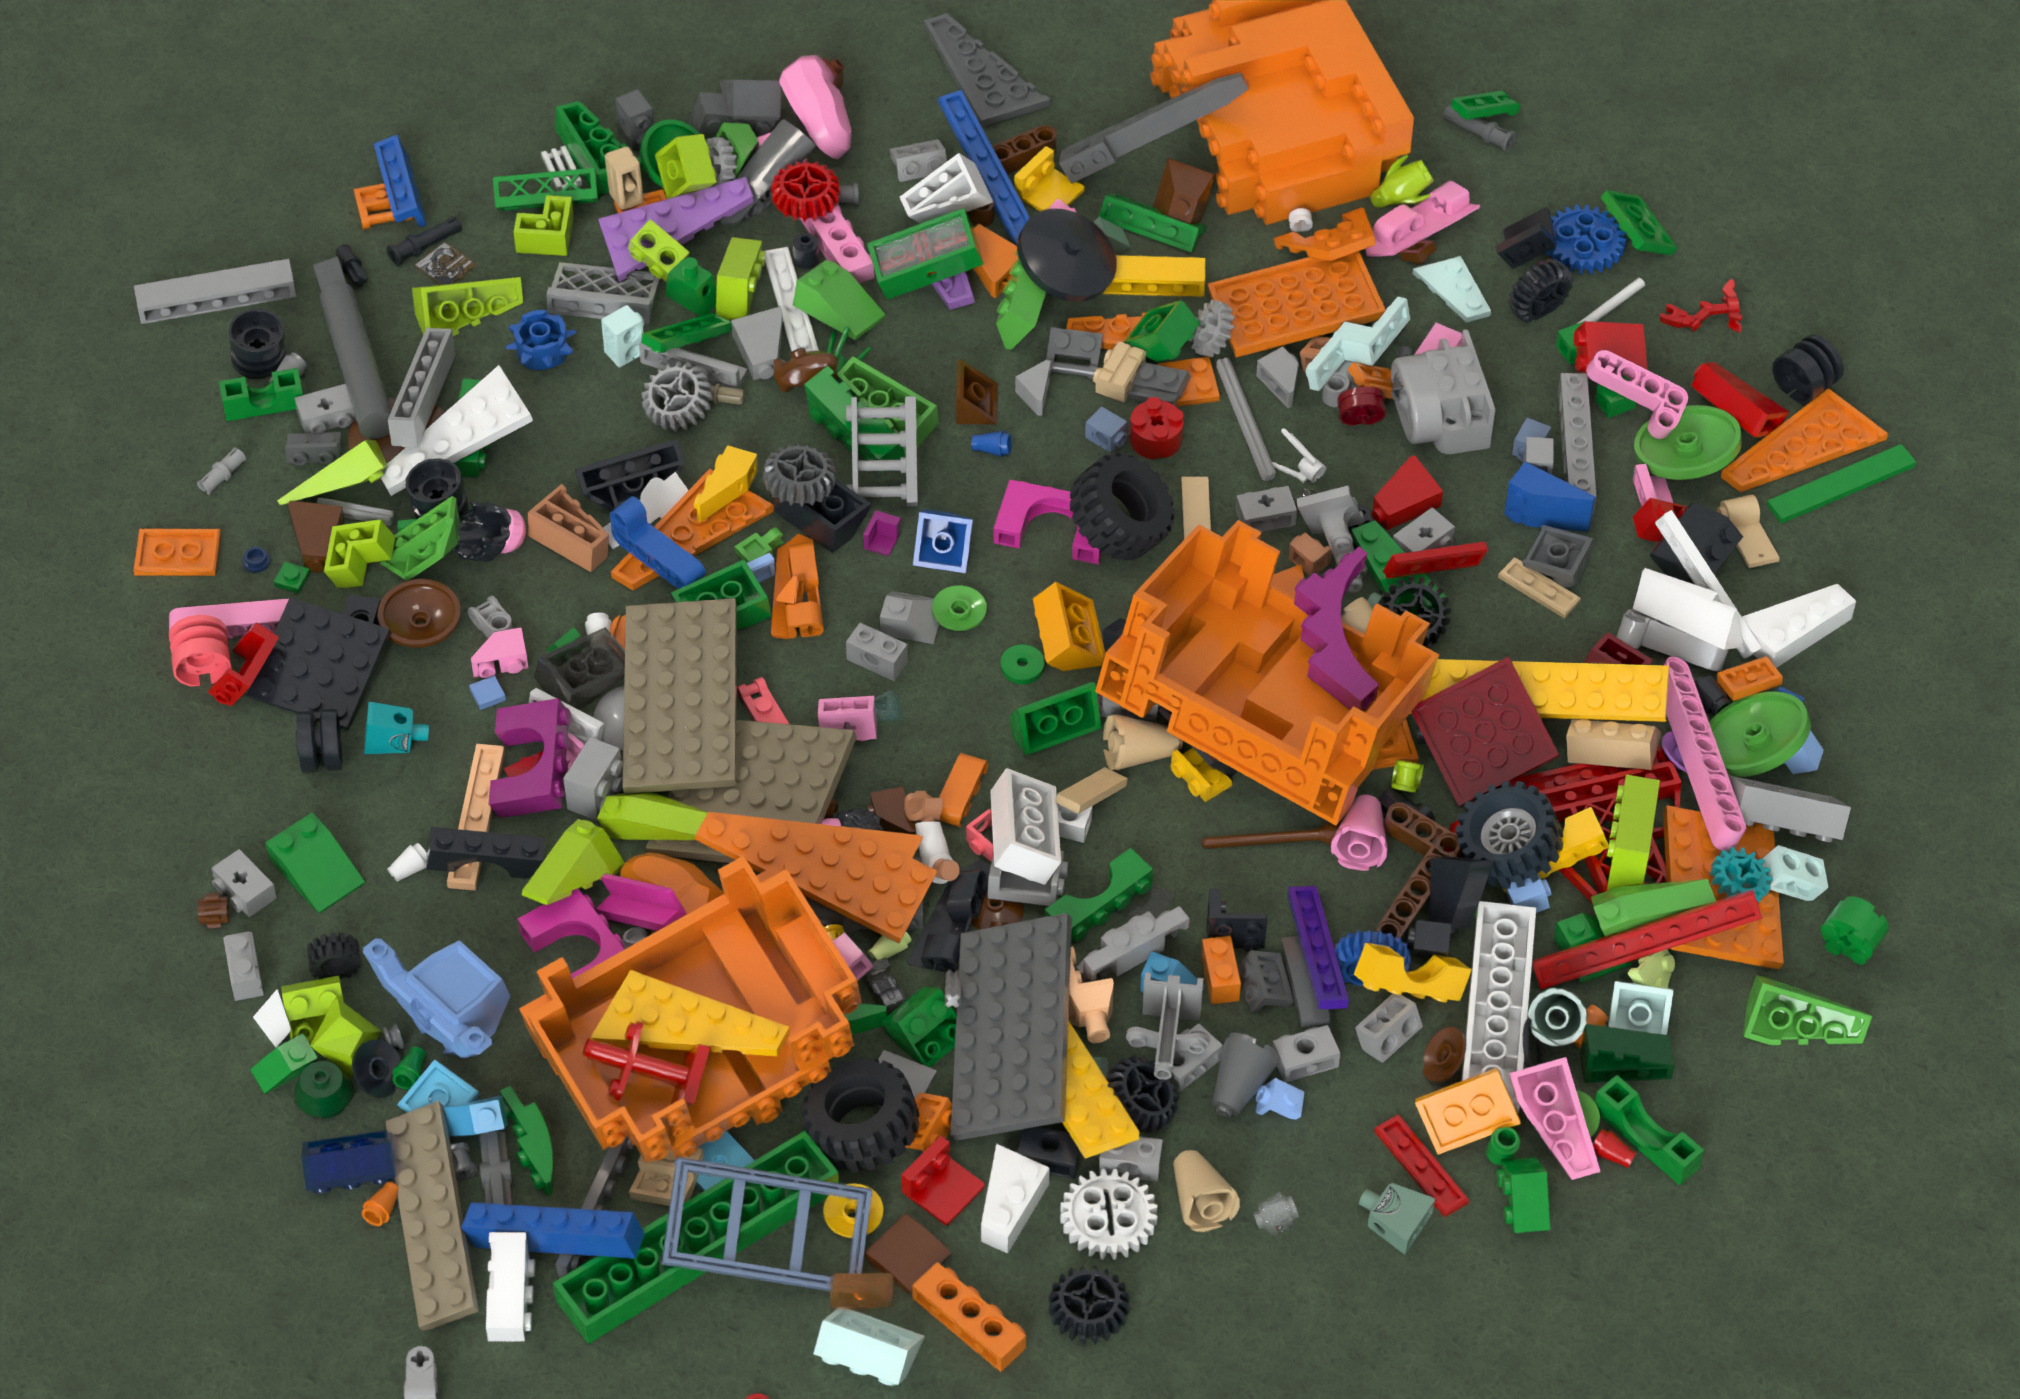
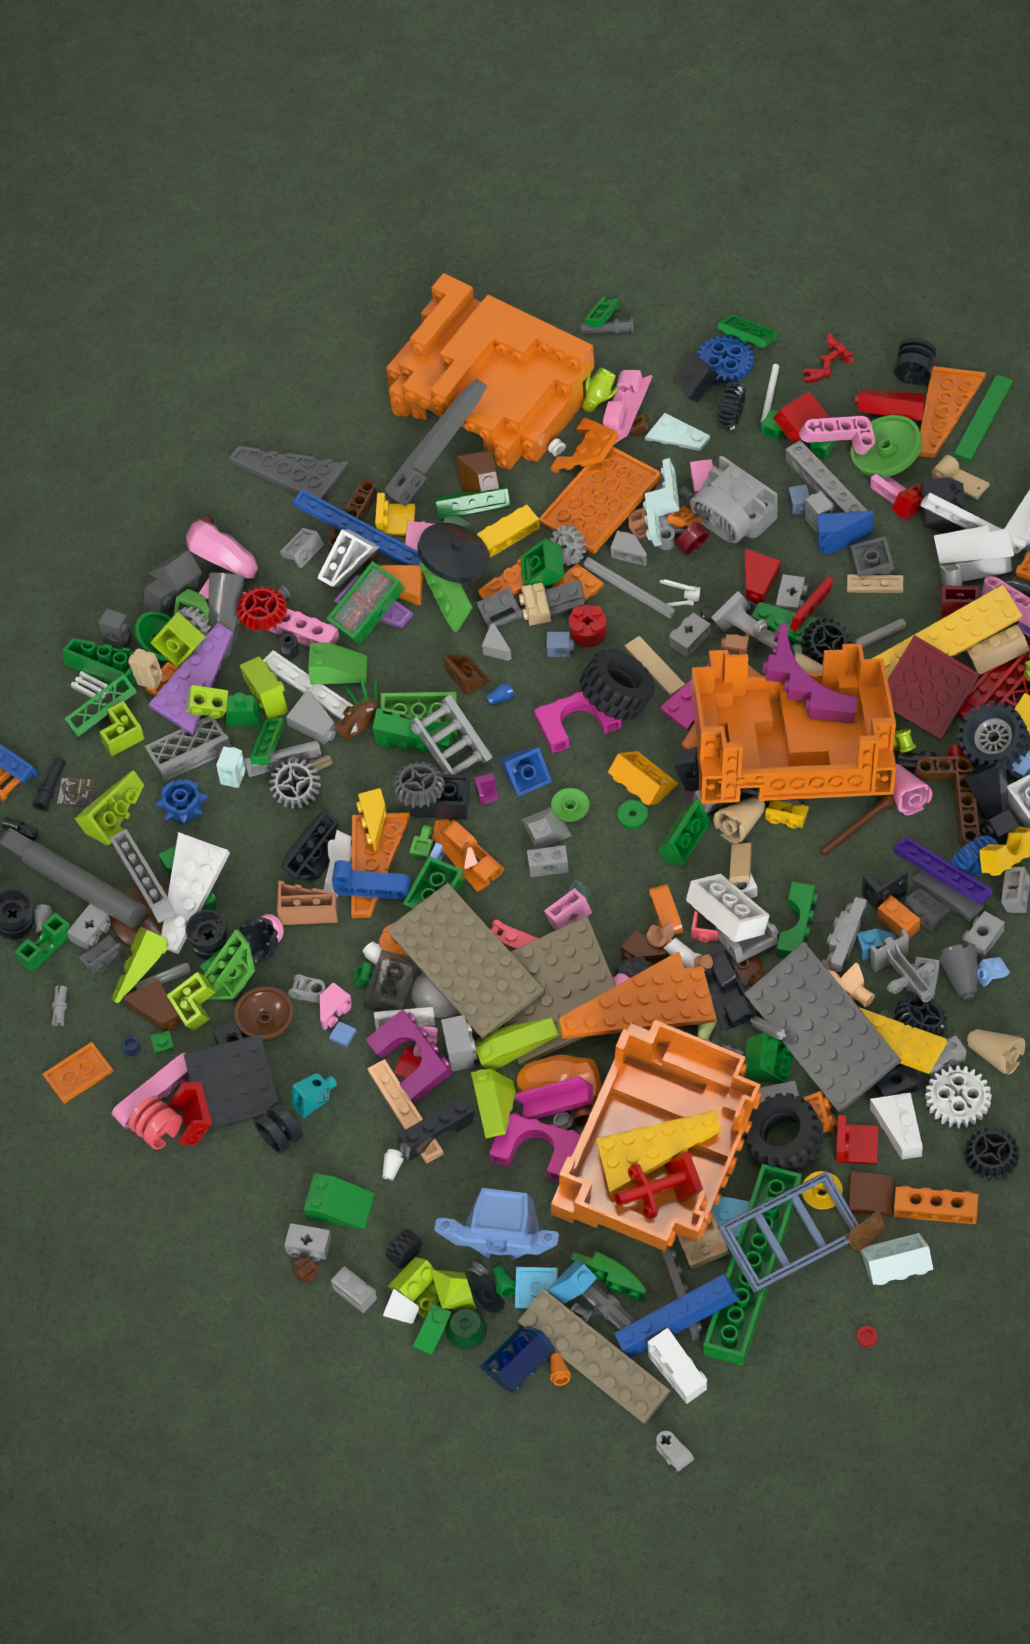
camera: 30 degrees left, 5 degrees up
(1494, 646) = (881, 633): none -> light grey axle

